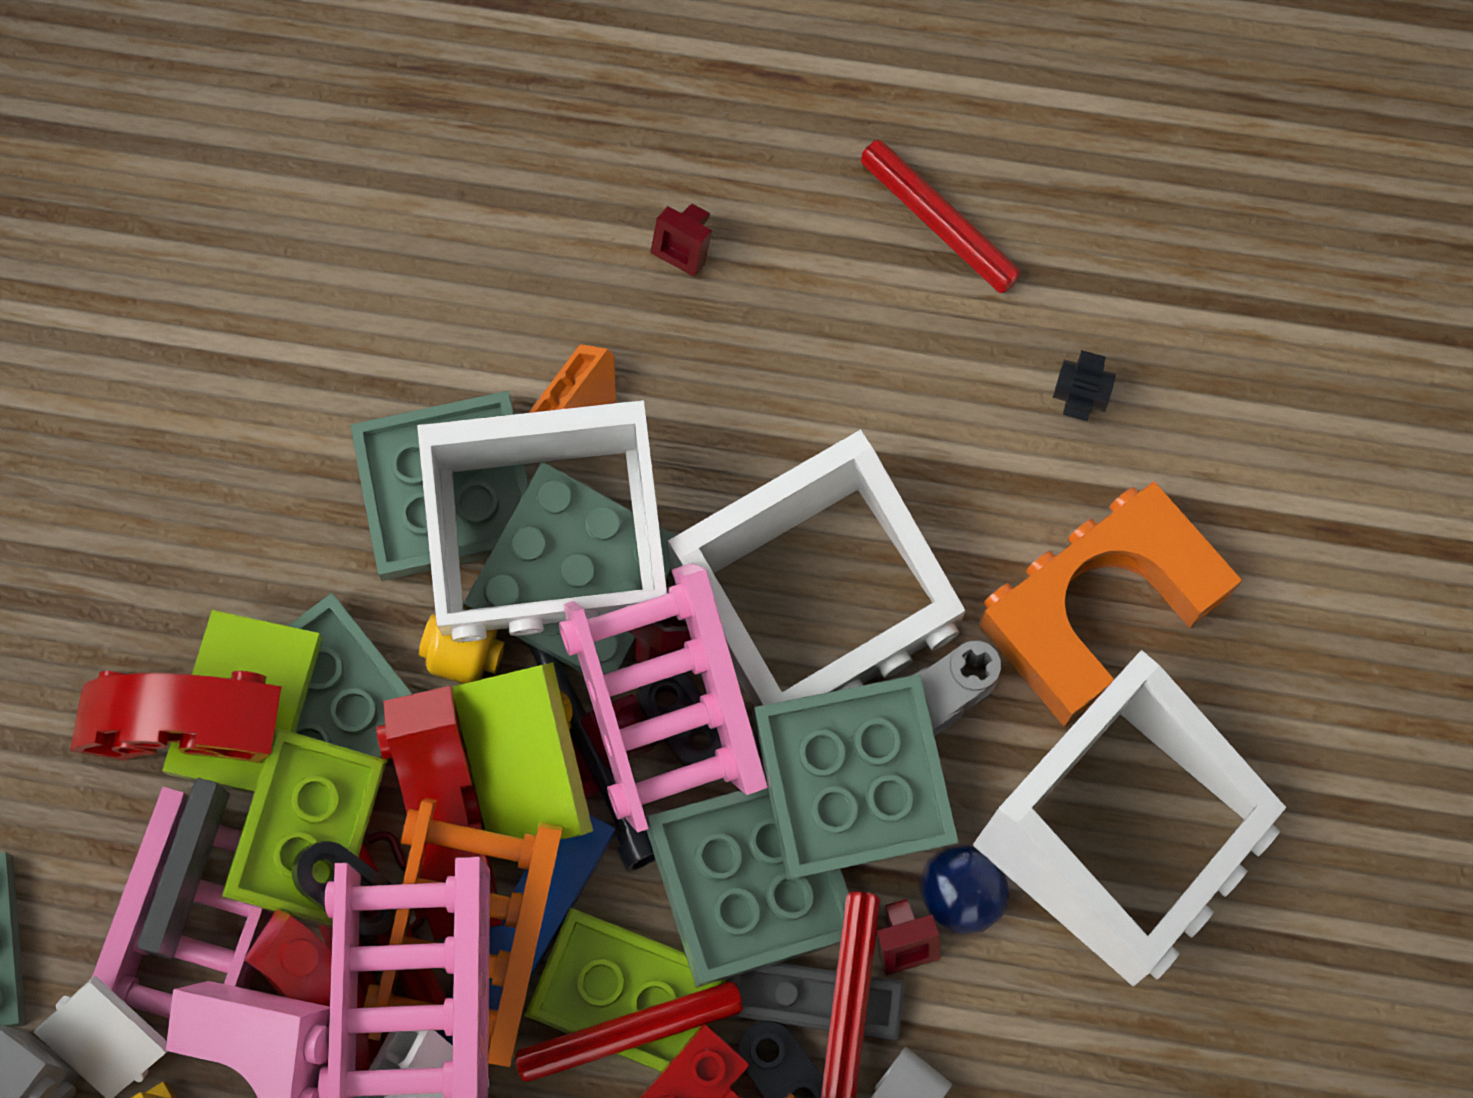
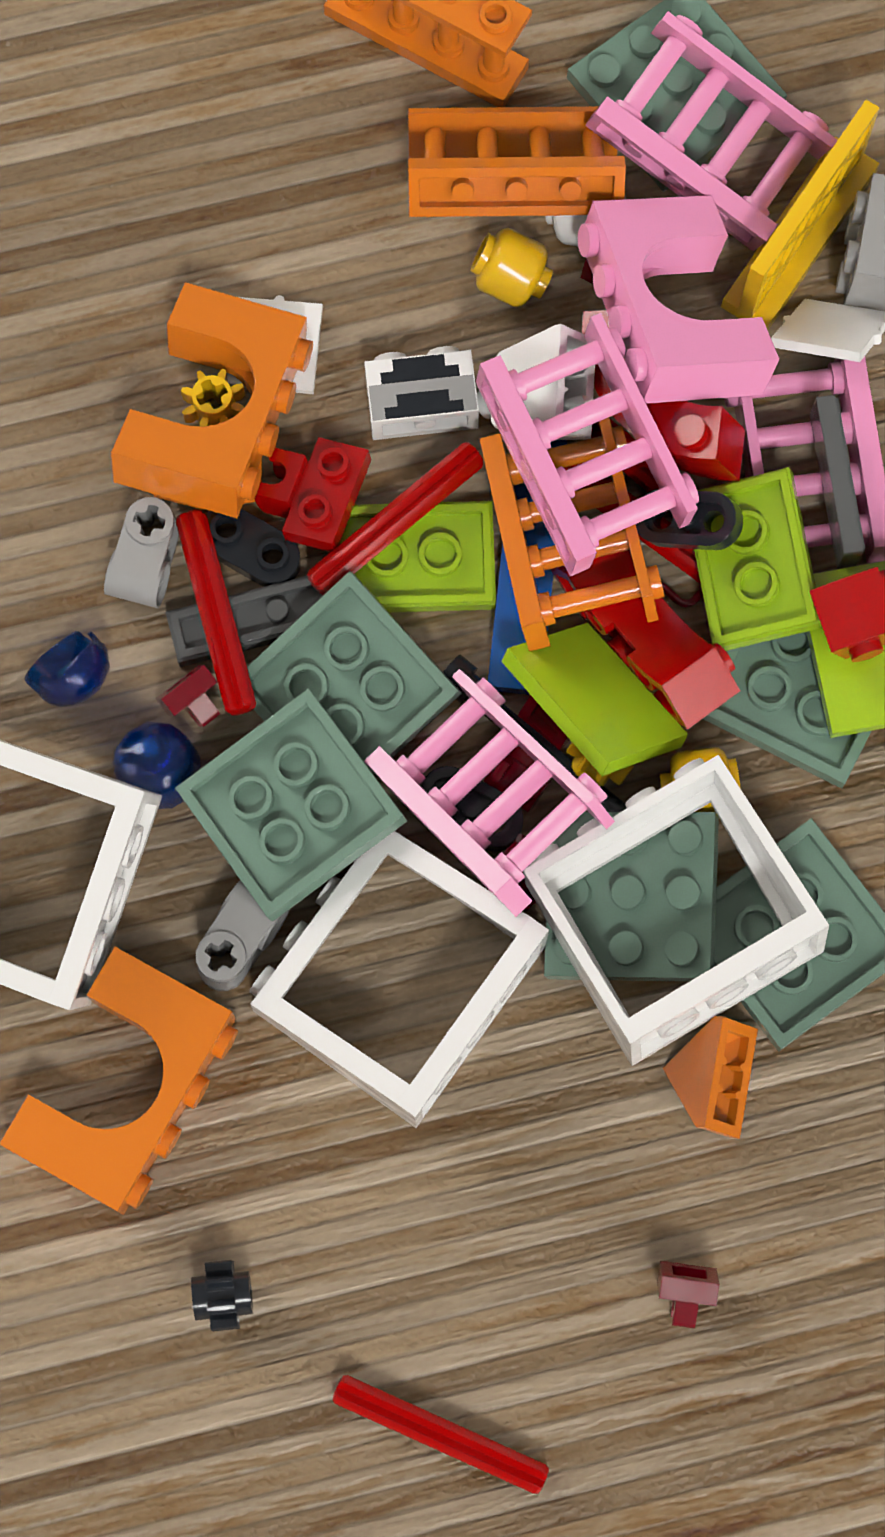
camera: 155 degrees right, 5 degrees up
(1018, 1015) = (70, 670): none -> clear blue hair

